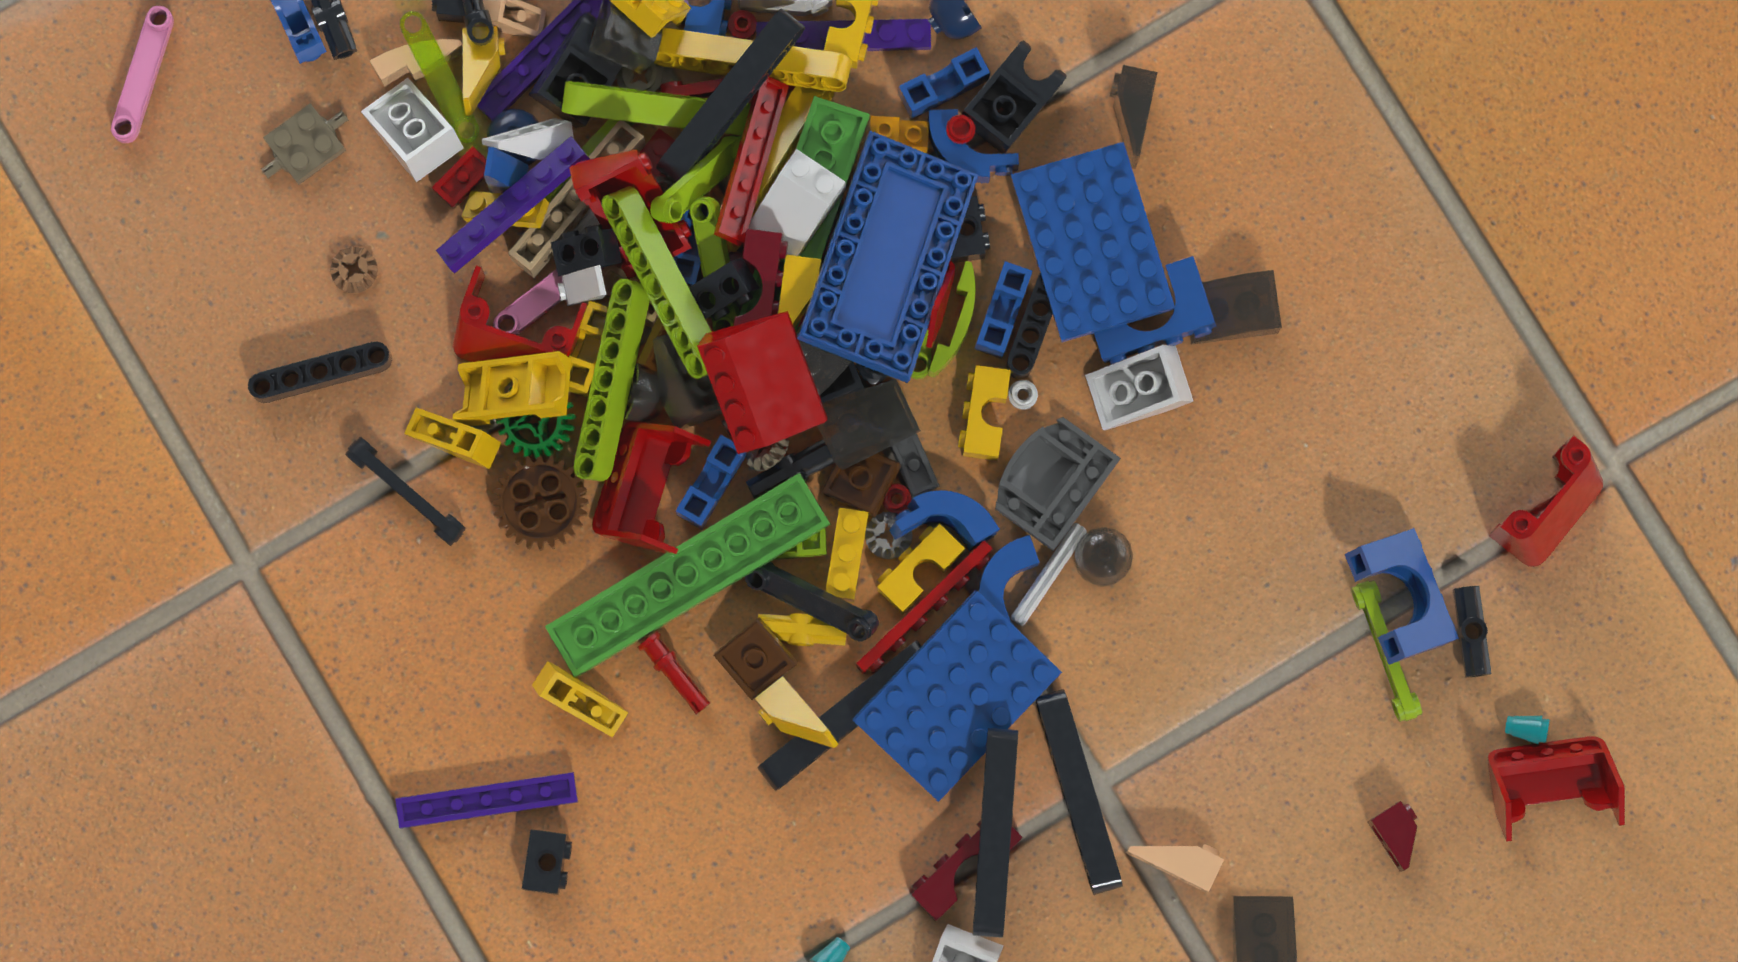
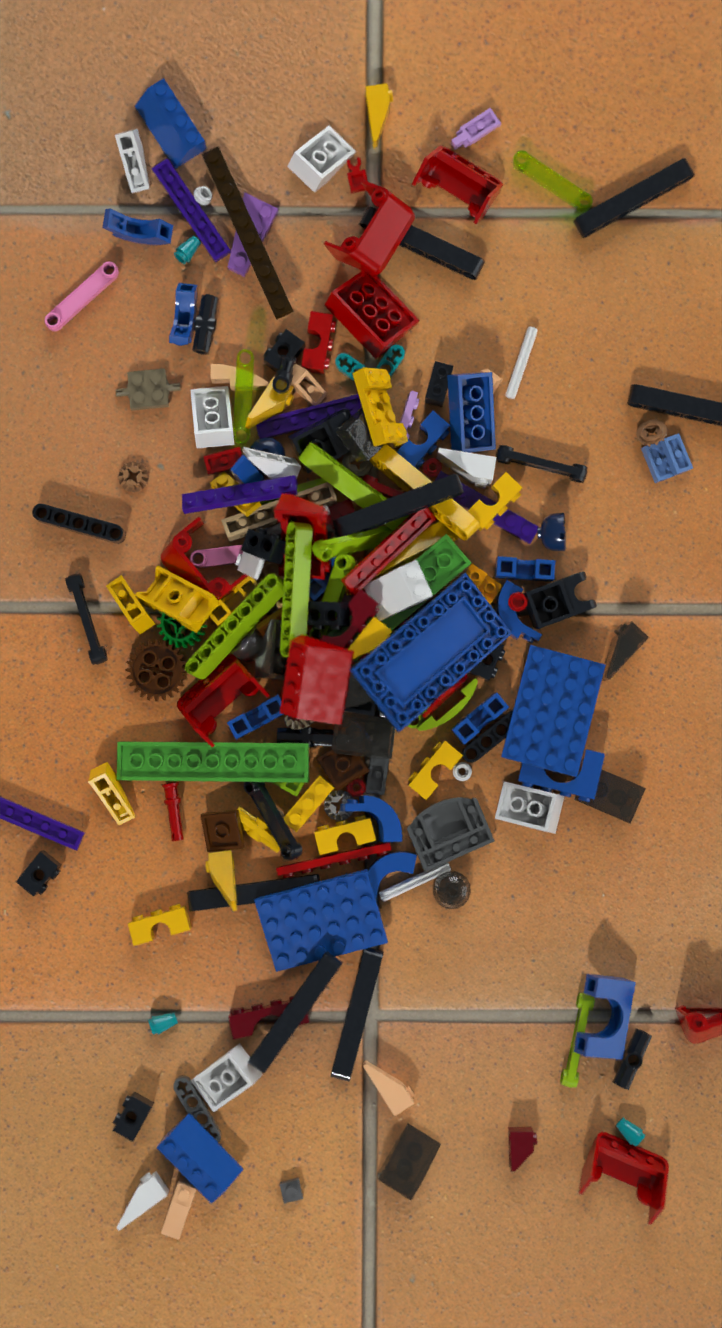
camera: 30 degrees right, 5 degrees up
(763, 811) = (142, 927): none -> yellow arch

